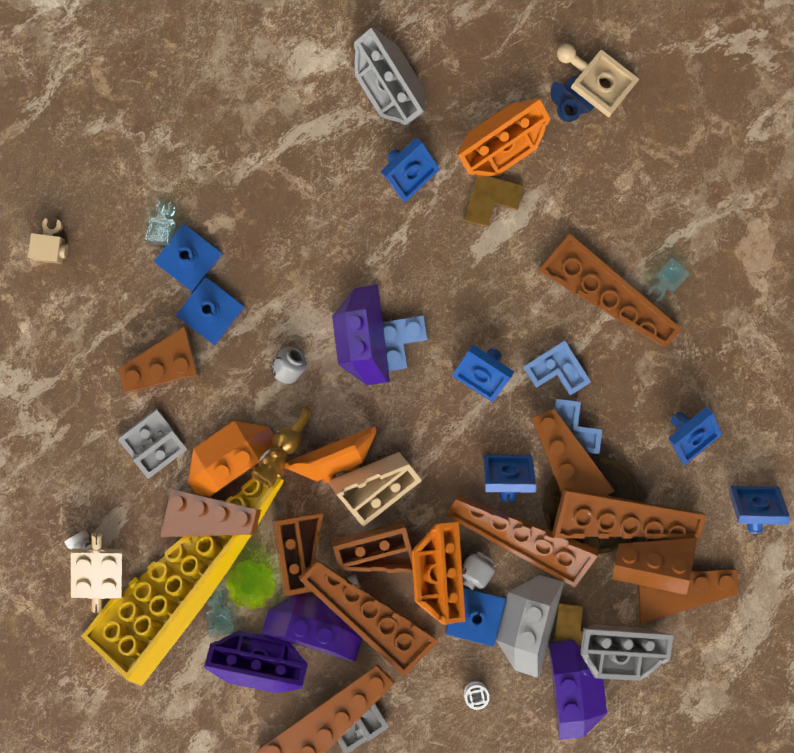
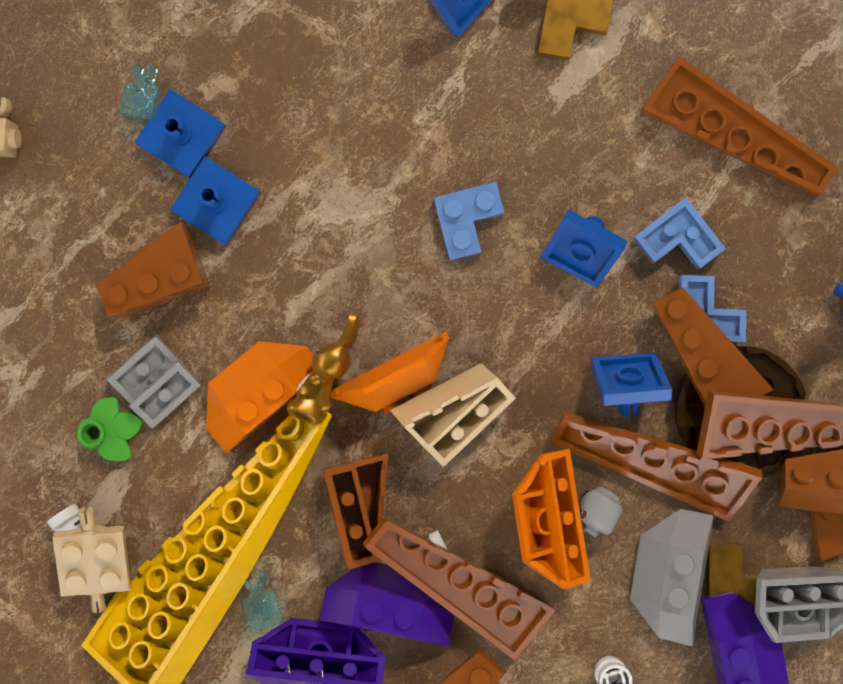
camera: 10 degrees left, 0 degrees up
(119, 477) = (114, 430): none -> bright green plate
(203, 516) = (227, 471): wing -> none
(250, 584) = (300, 556): clear neon green plant -> none
(288, 365) = (324, 261): light grey head -> none
(361, 336) = (417, 216): dark purple wedge -> none
(375, 550) = (463, 496): dark orange wedge -> none
(482, 617) = (611, 573): blue tile -> none
(669, 278) = (814, 104): clear light blue plate -> none

